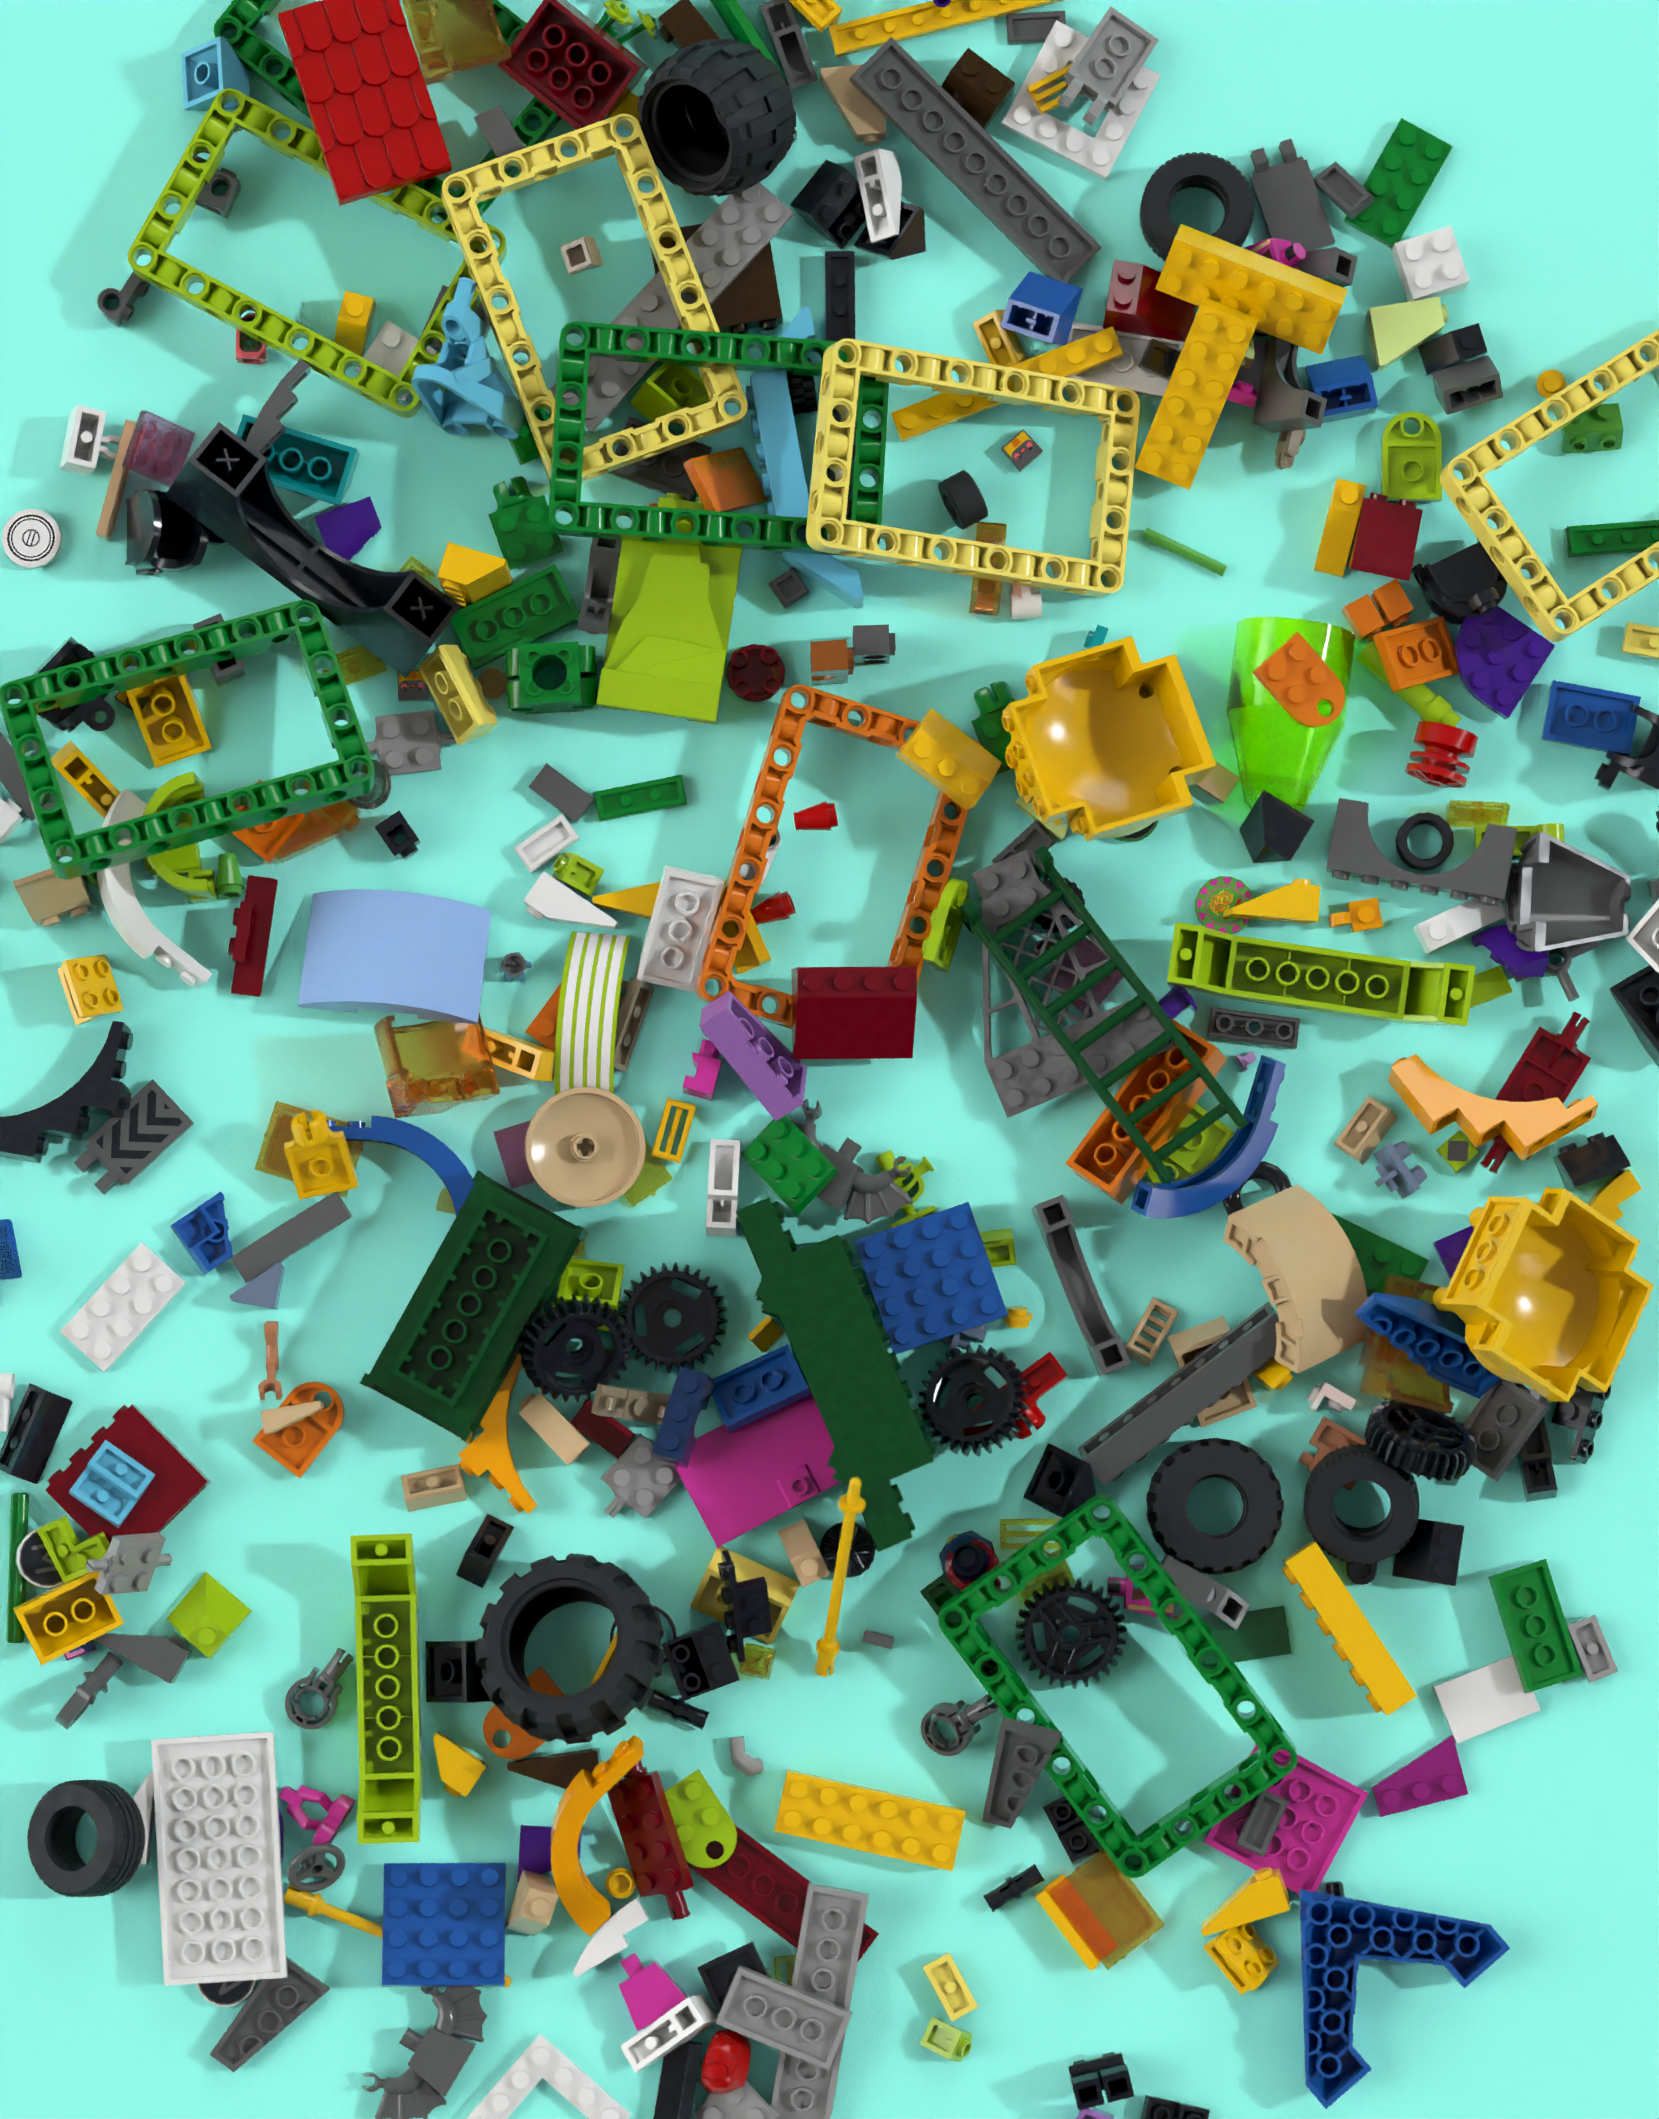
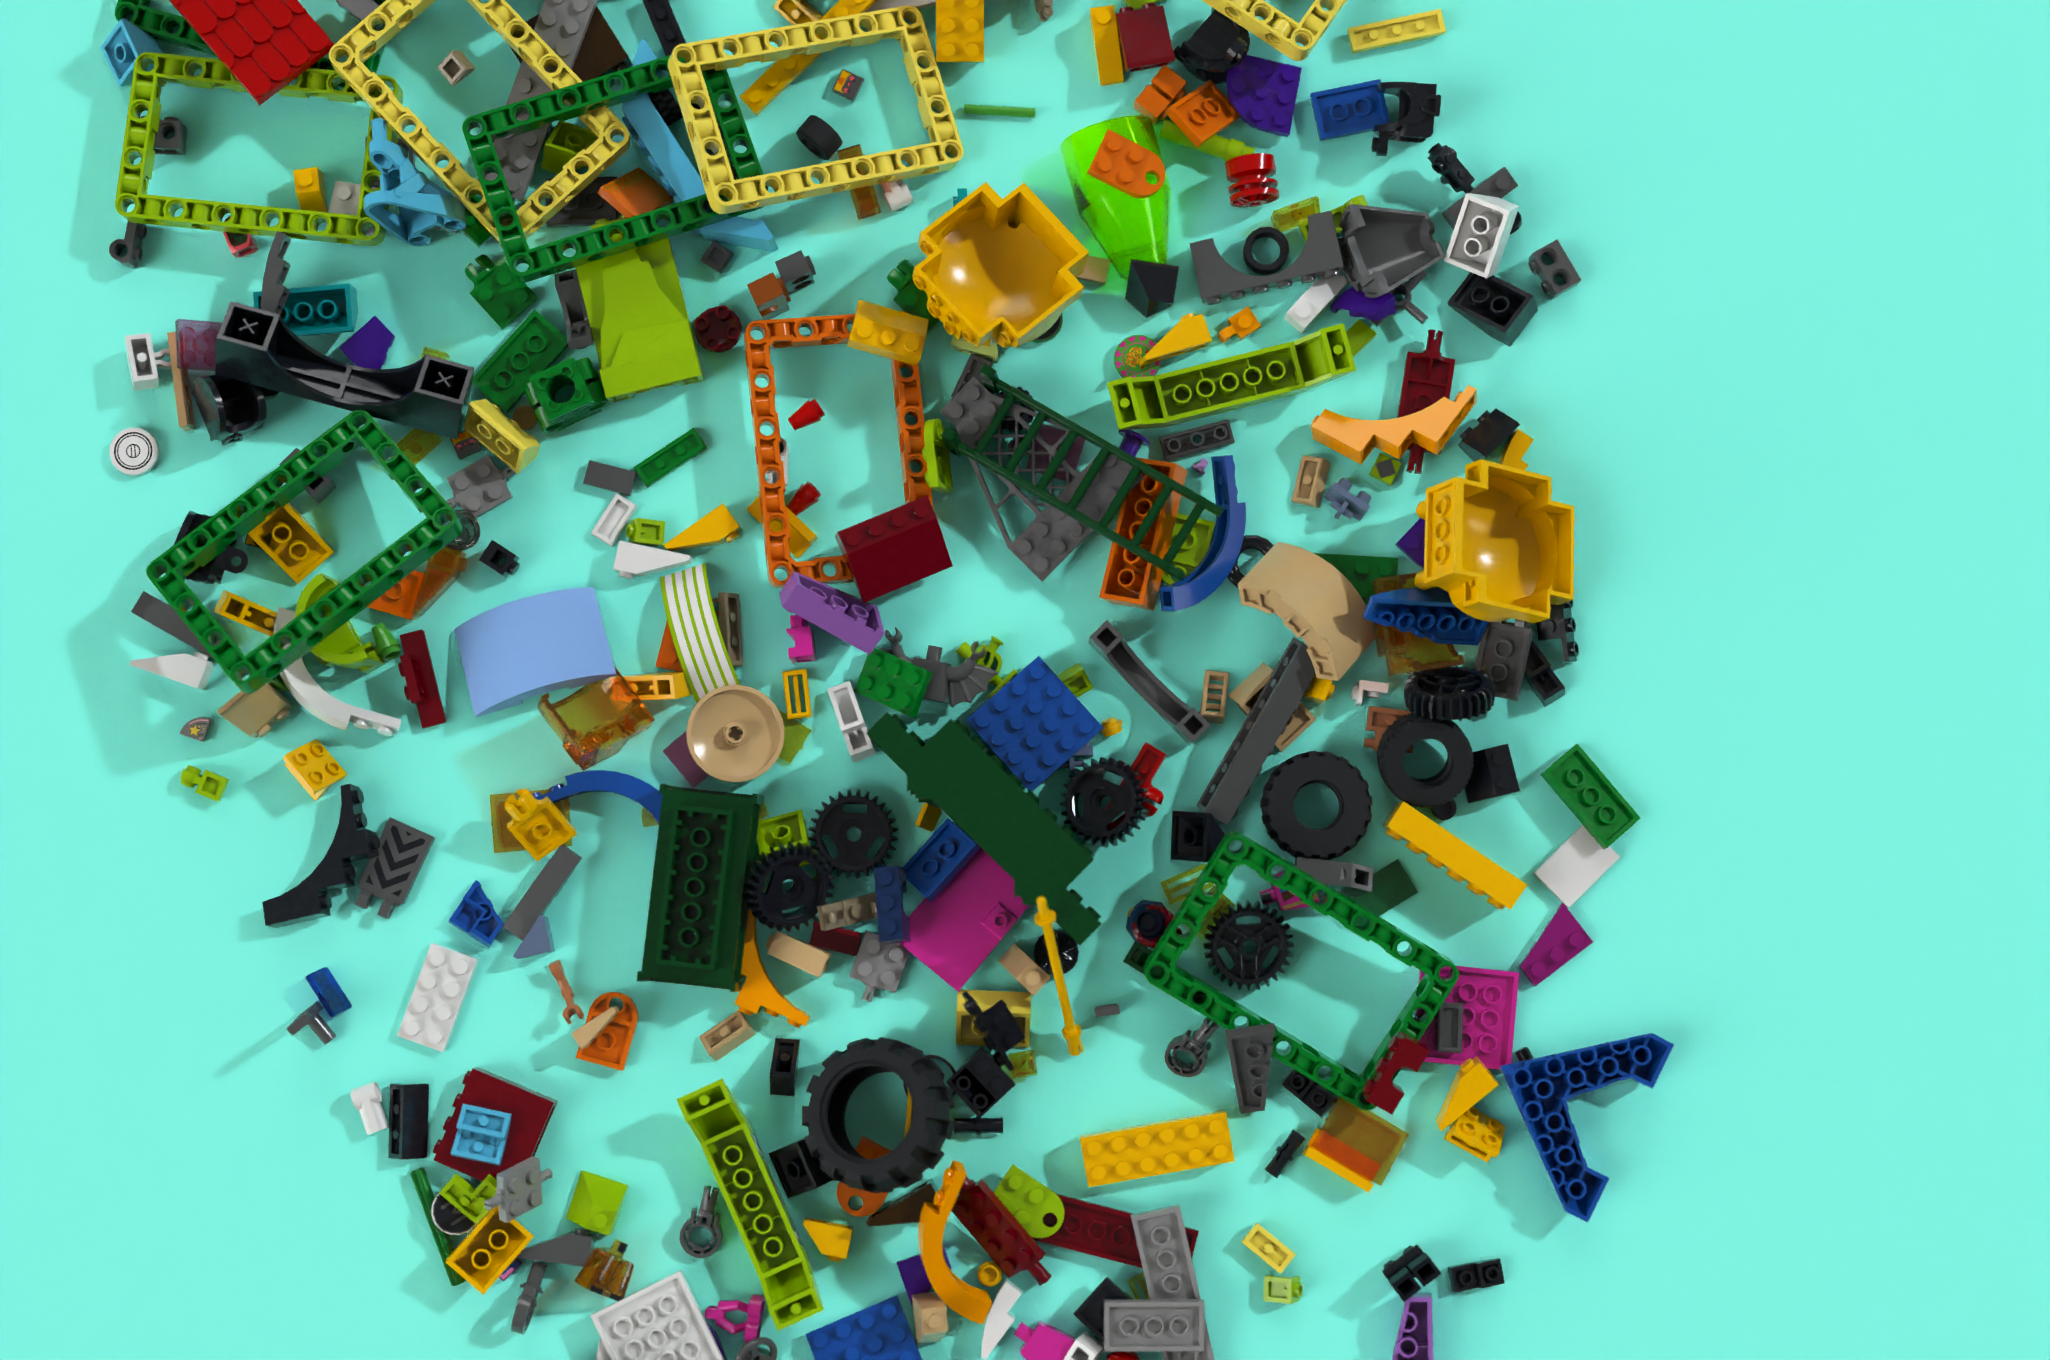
camera: 20 degrees left, 0 degrees up
(190, 1698) = (607, 1272): none -> clear orange torso
(471, 574) = (472, 339): yellow slope -> none
(514, 966) = (627, 620): dark grey piece -> none
(679, 928) = (738, 541): white plate -> none
(741, 1760) = (1042, 1143): light grey arm -> none
(1194, 1827) = (1402, 1052): none -> dark red arch
(1592, 1648) = (1639, 796): light grey plate -> none

